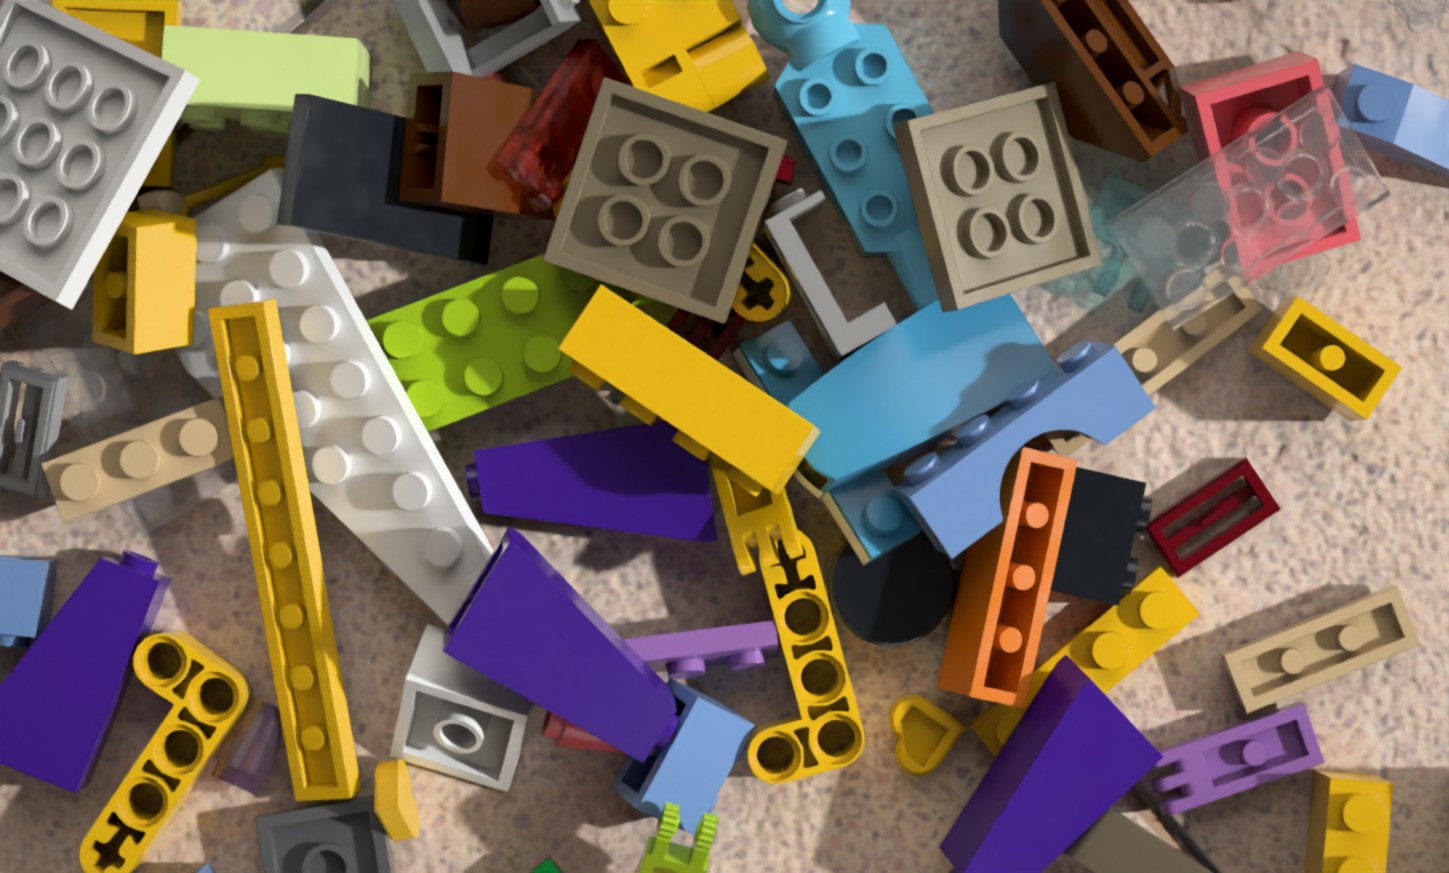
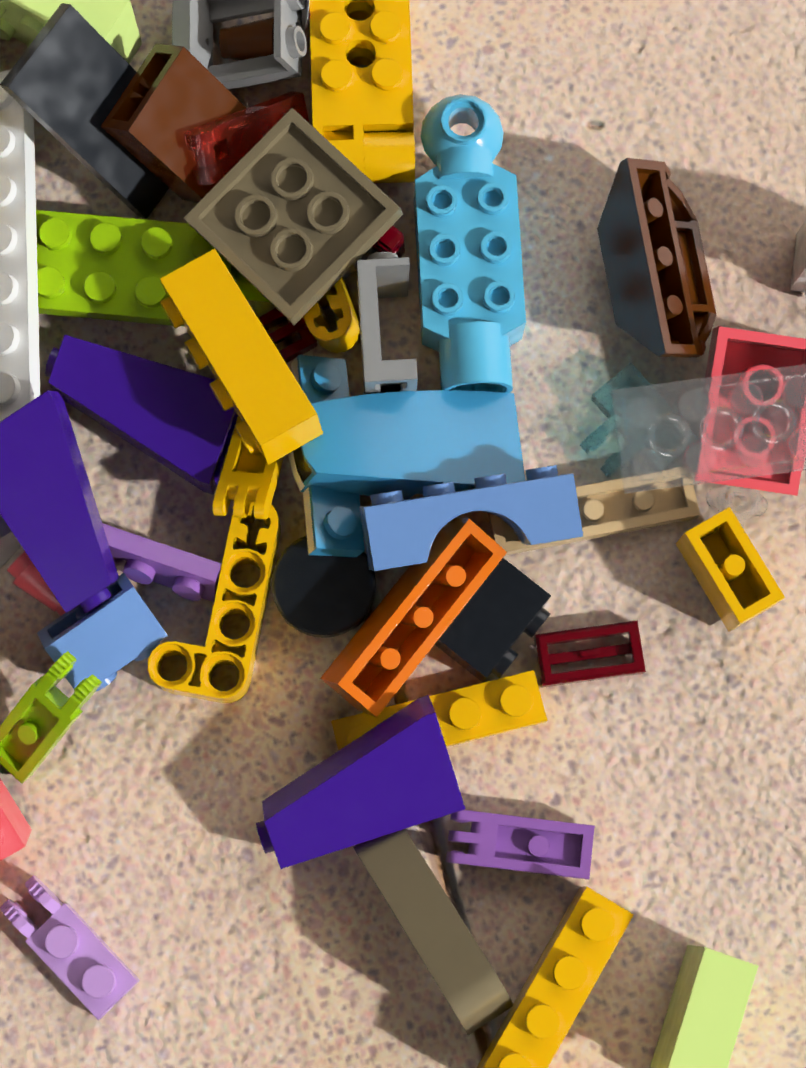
camera: 20 degrees right, 10 degrees down
(923, 733) = (293, 712): yellow tile -> none
(997, 196) = (538, 328): dark tan plate -> none
(1320, 649) = (626, 791): tan plate -> none

